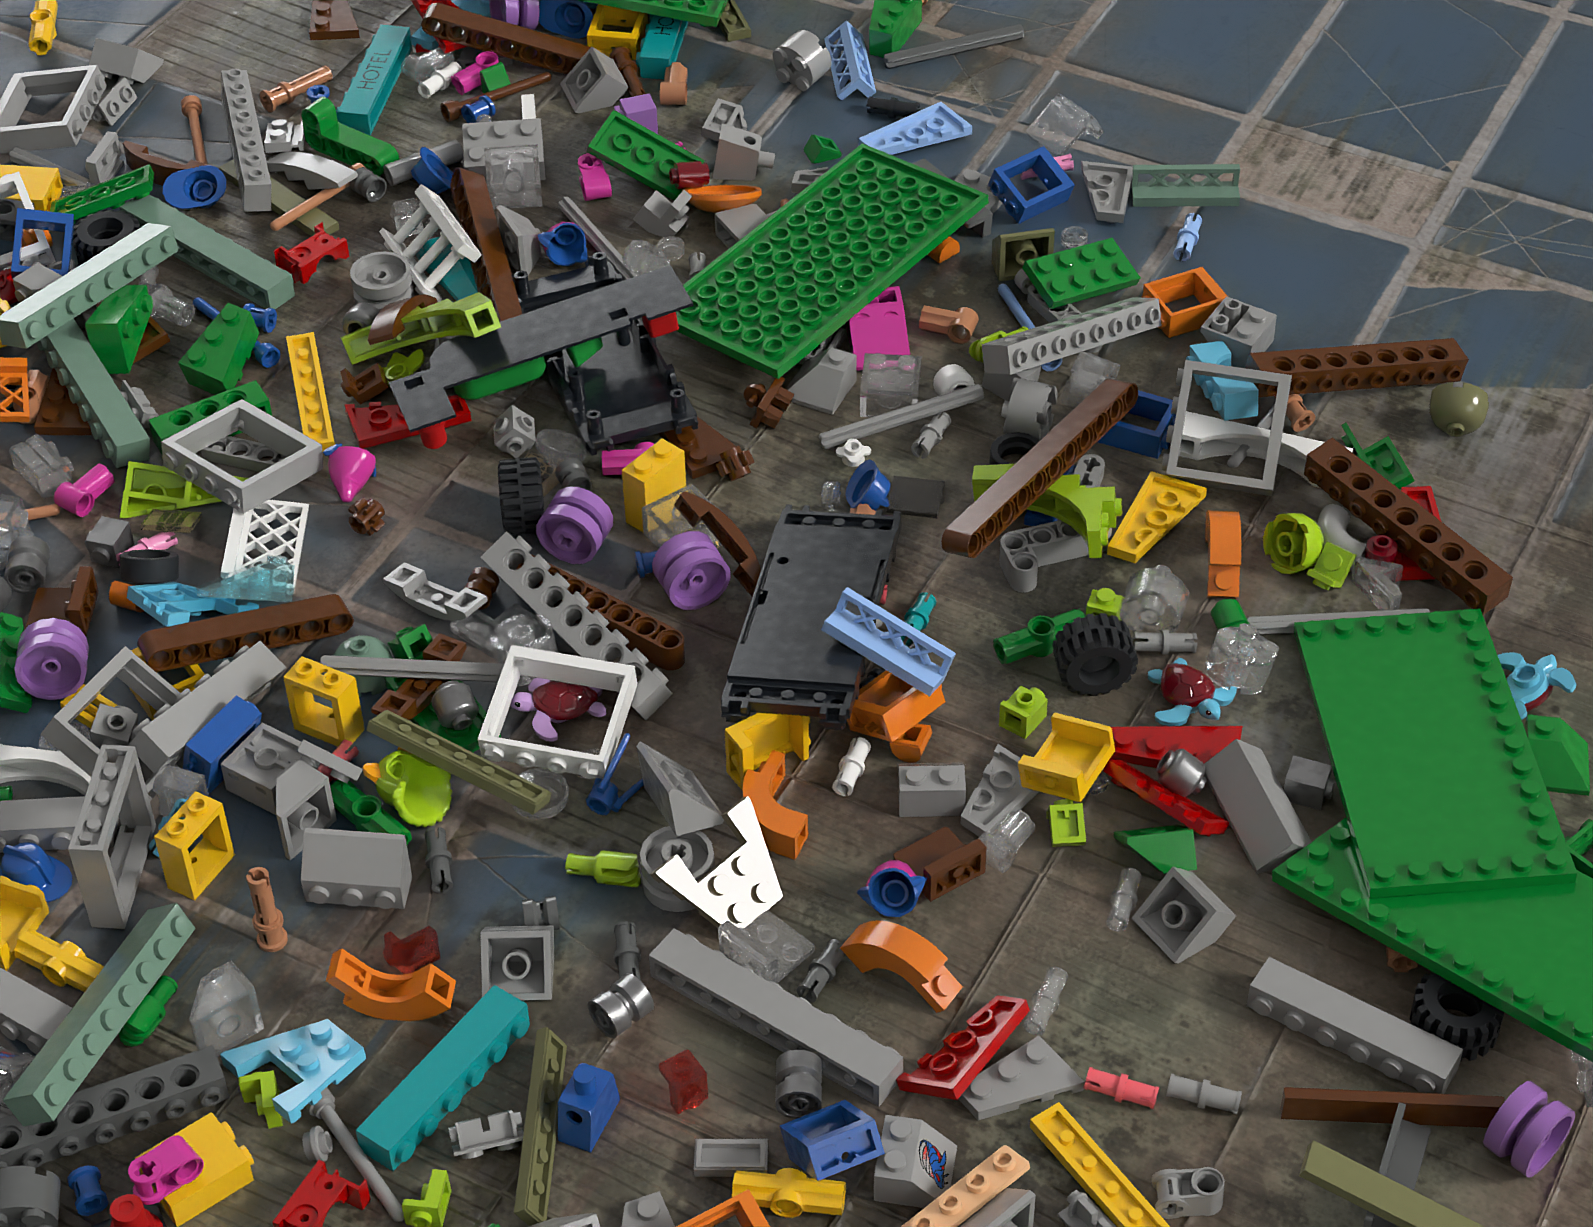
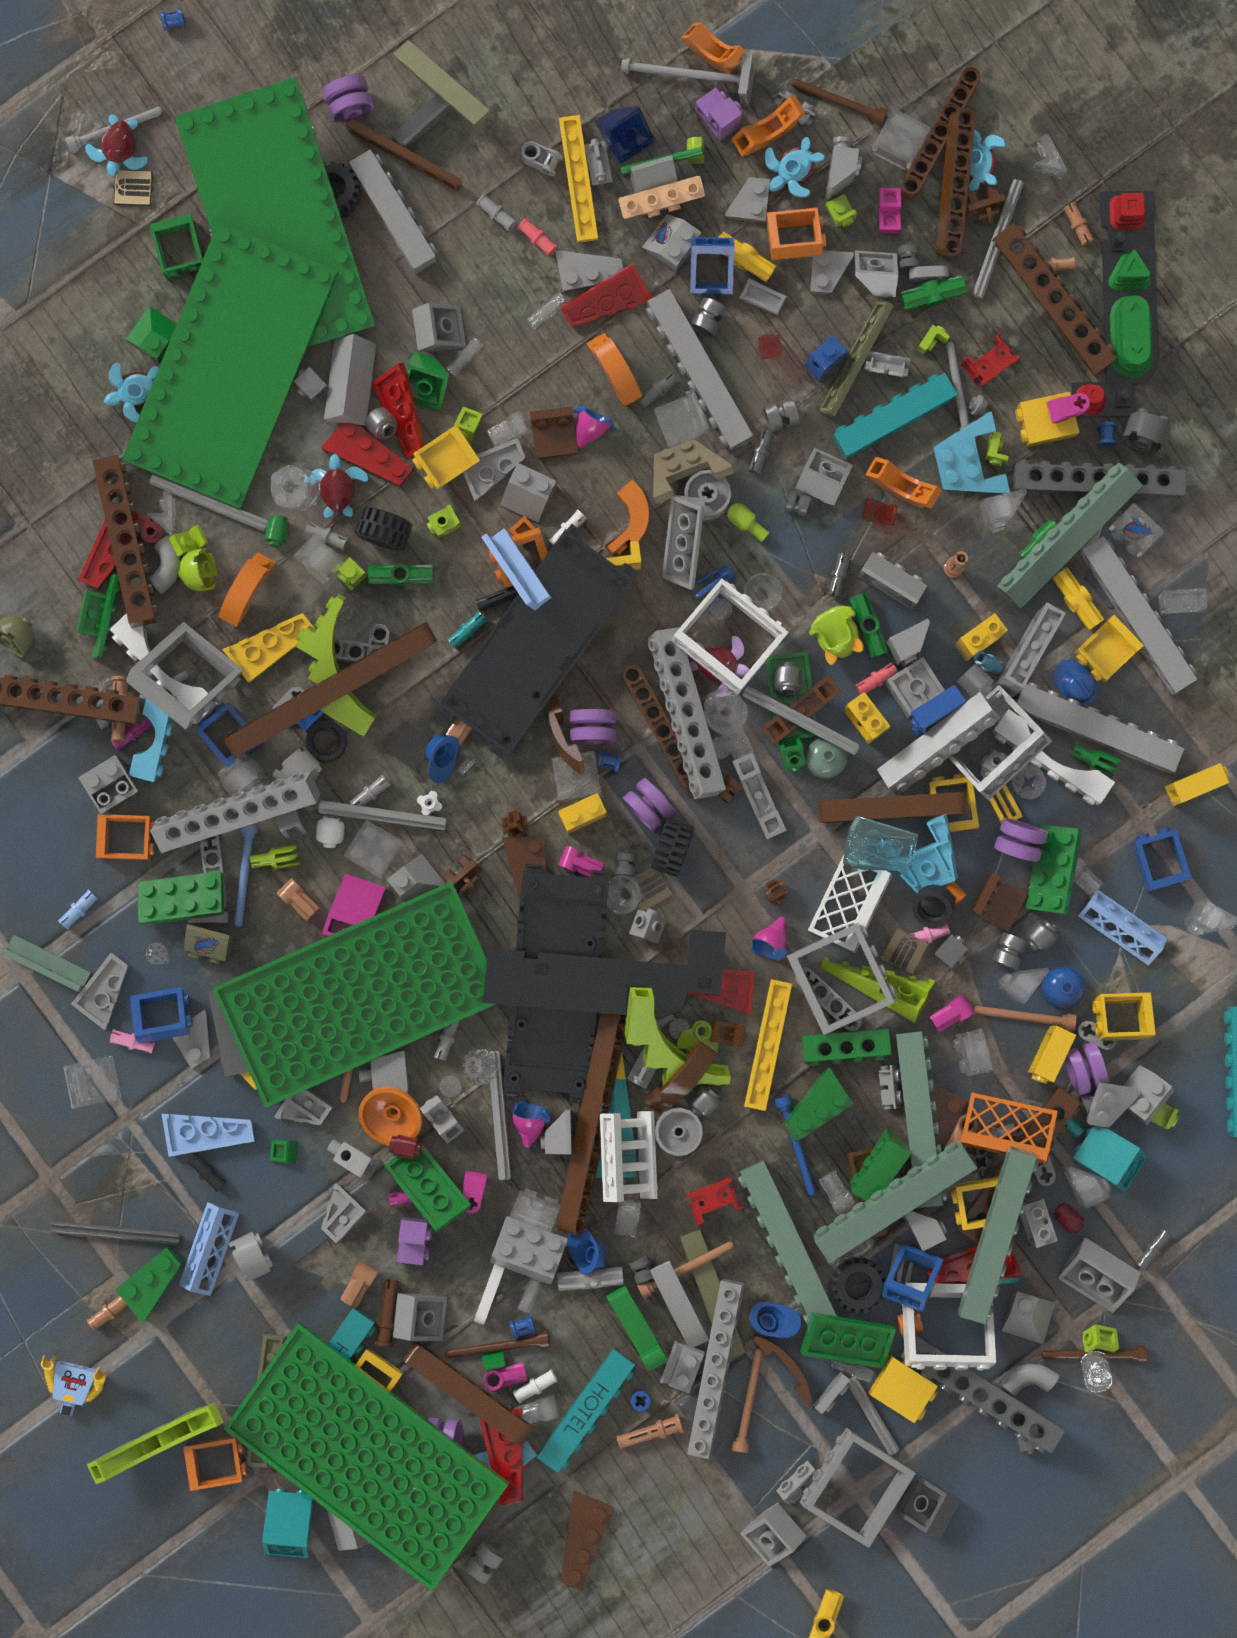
camera: 160 degrees left, 40 degrees up
(263, 318) = (776, 1146): blue bush -> none
(340, 768) = (879, 660): light grey wing -> none
(459, 761) = (805, 625): olive tile -> none

